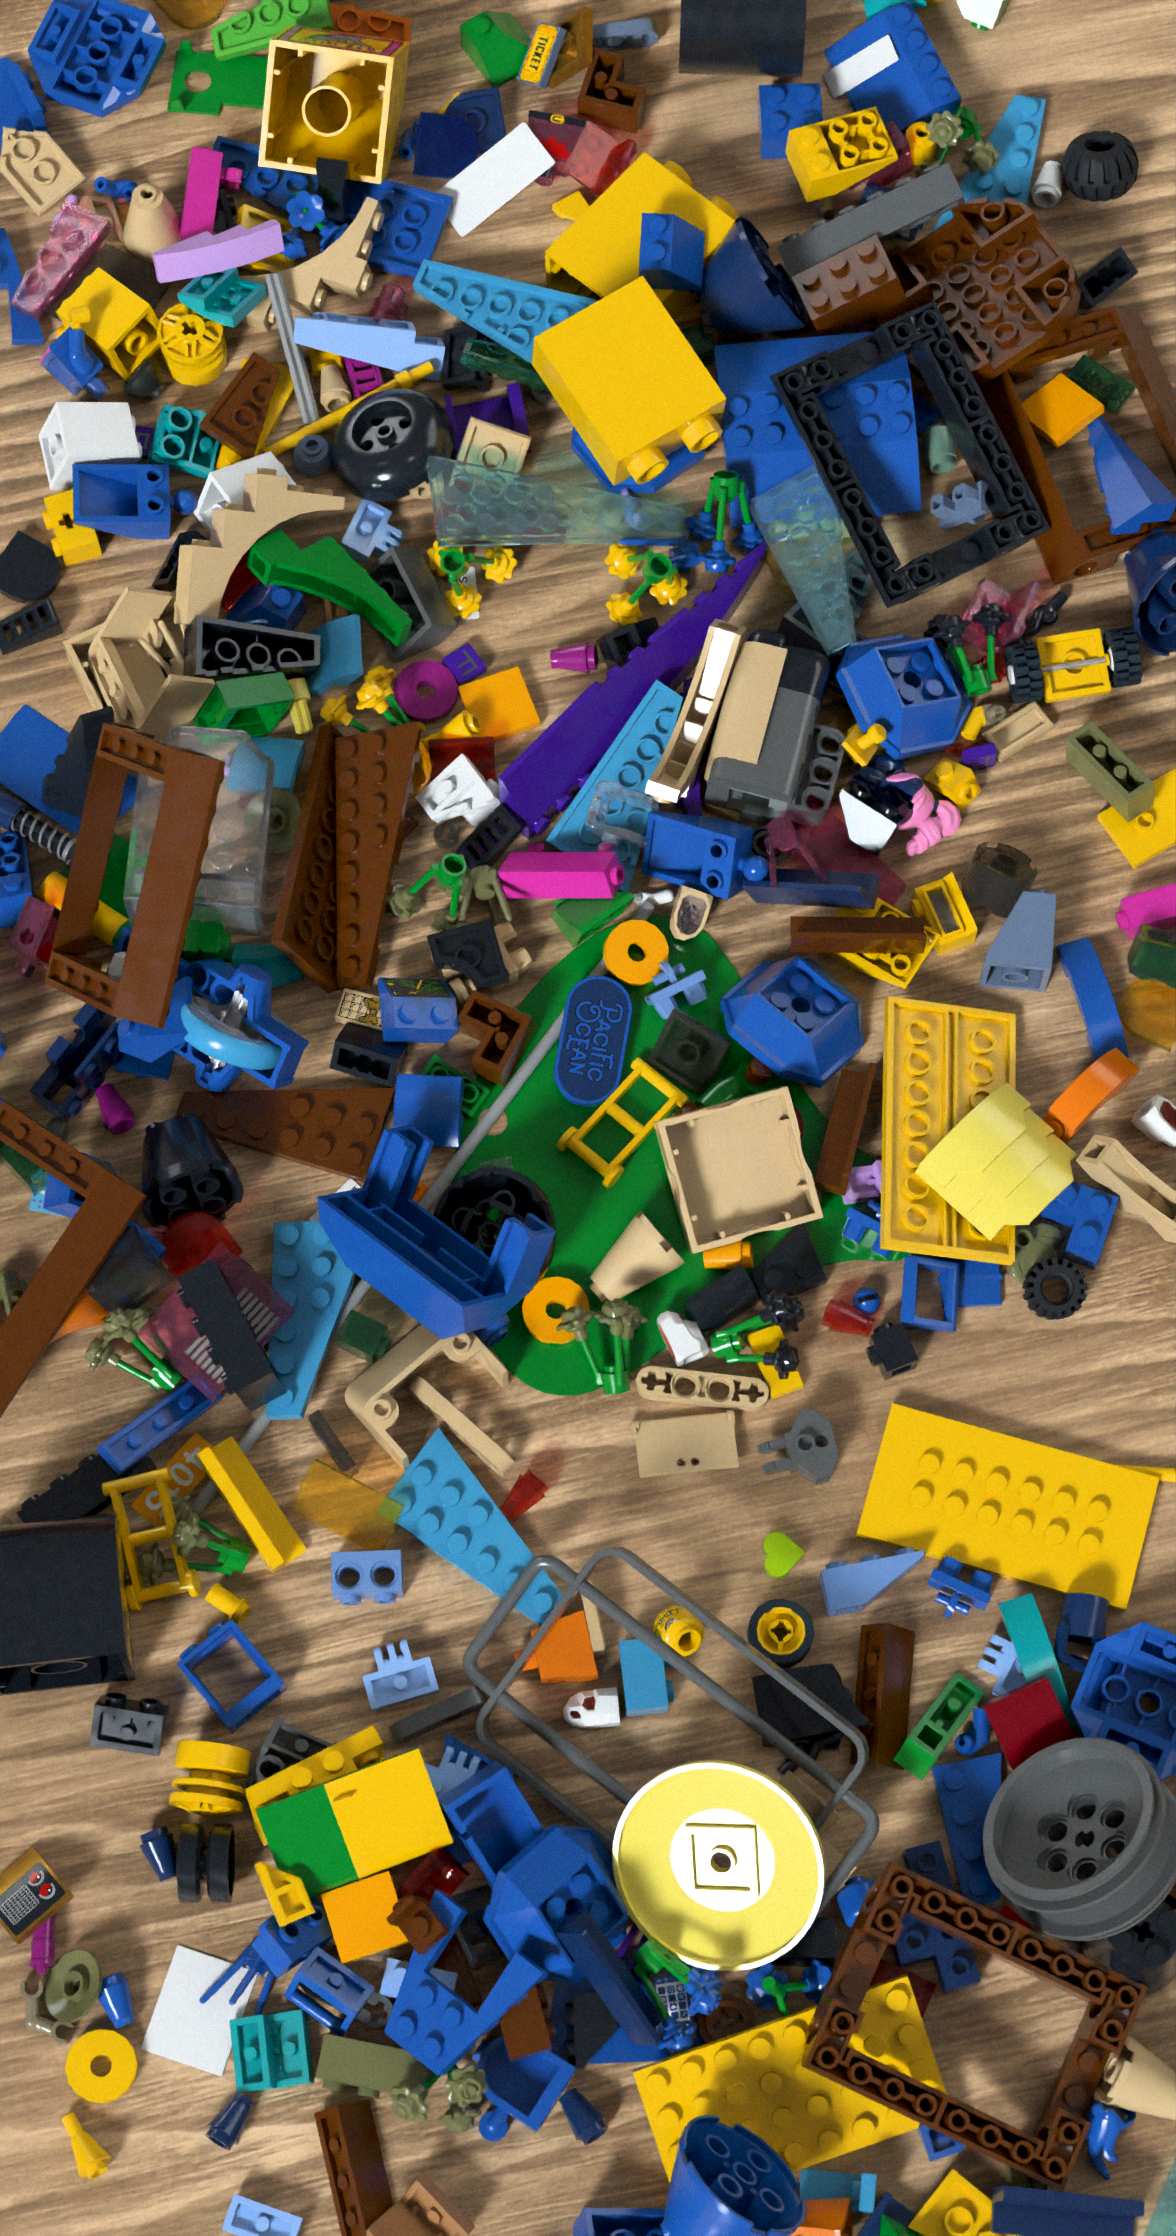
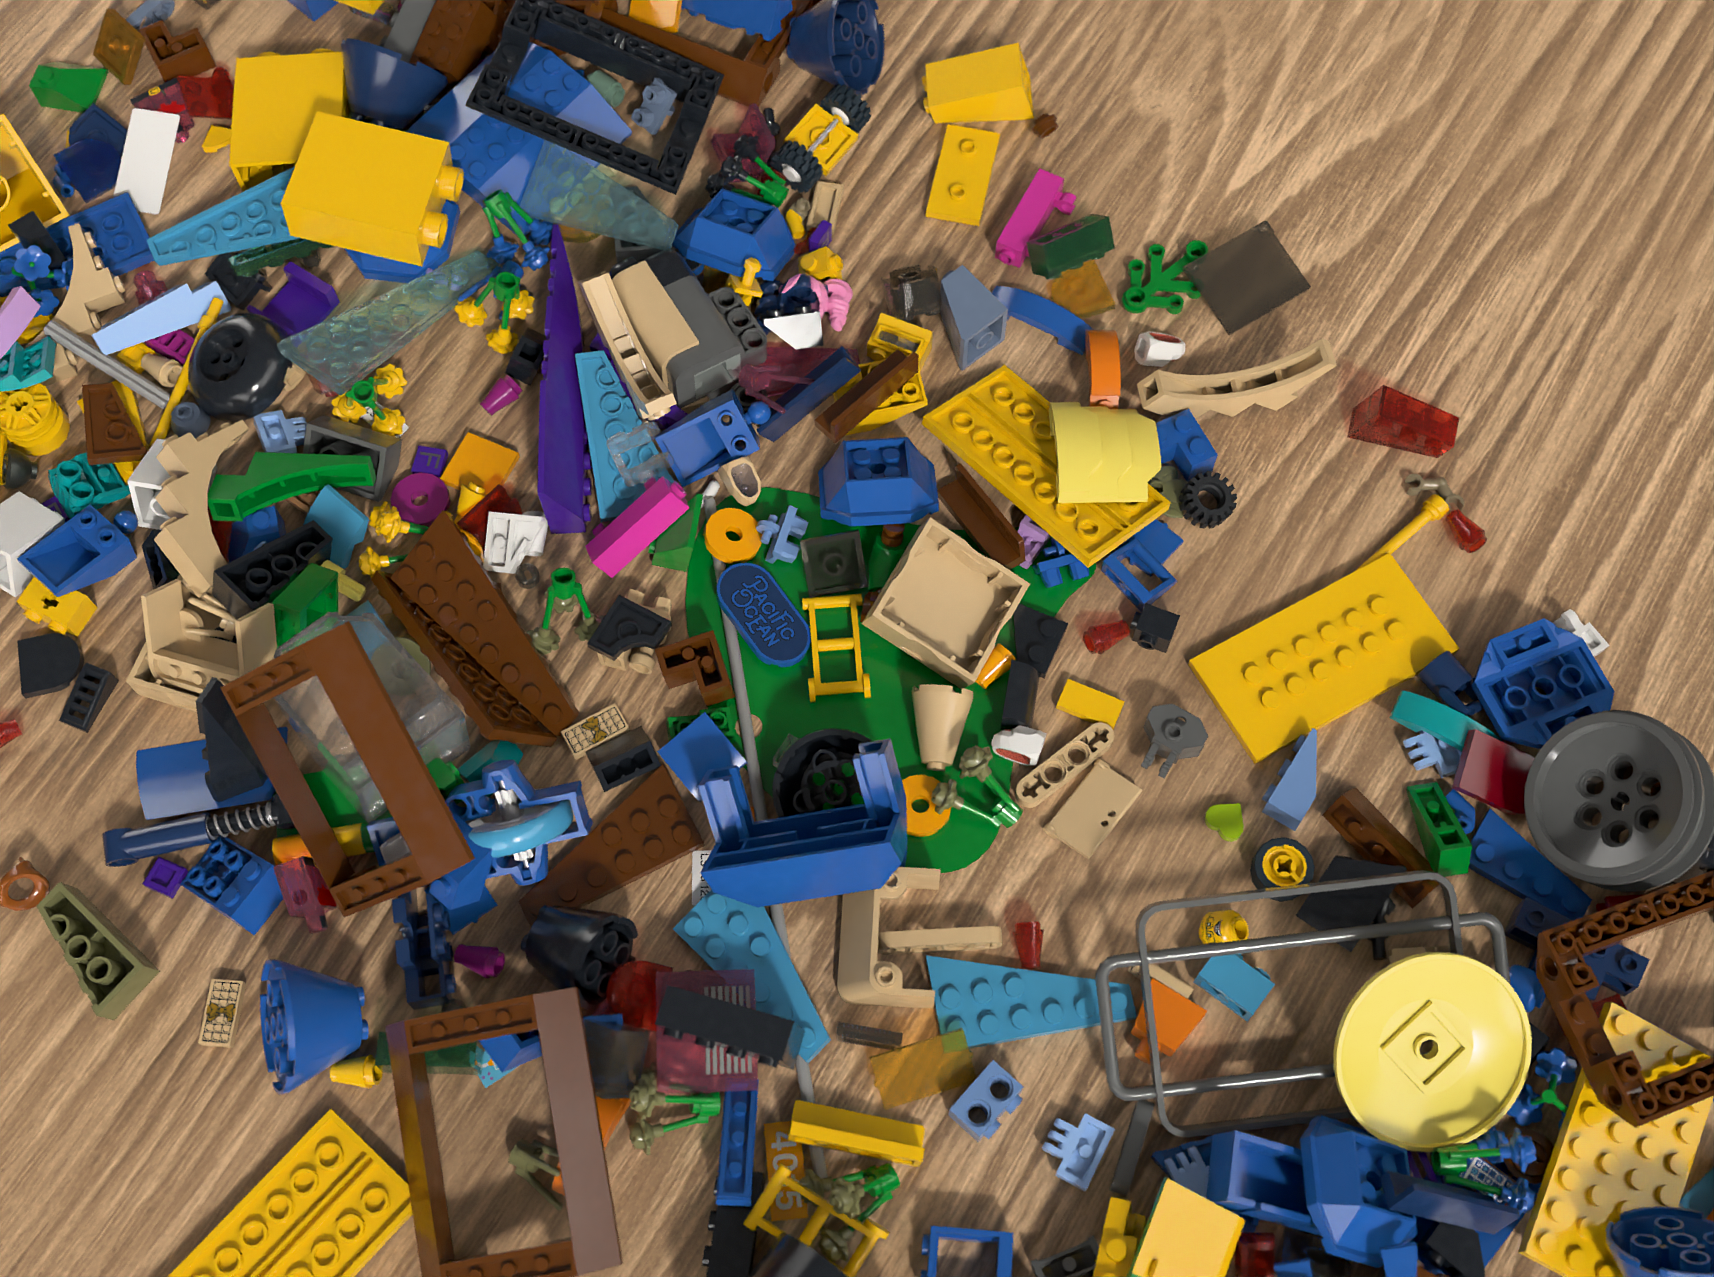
camera: 45 degrees left, 5 degrees down
(228, 1603) = (912, 1218): yellow pin -> none
(363, 1337) = (814, 944): clear green brick -> none
(417, 1010) = (627, 699): blue slope -> none
(475, 851) = (574, 549): black slope -> none
(484, 884) = (591, 583): olive plant -> none
(493, 446) = (311, 308): tan tile -> none
(541, 55) = (104, 65): tile -> none
(593, 1709) = (1224, 1037): white rock -> none
(671, 252) = (313, 91): blue slope -> none
(779, 1311) = (1070, 662): plant -> none
(868, 1307) = (1110, 616): blue hinge -> none
(946, 1581) = (1365, 726): blue hips -> none
(1109, 771) = (909, 177): olive brick -> none

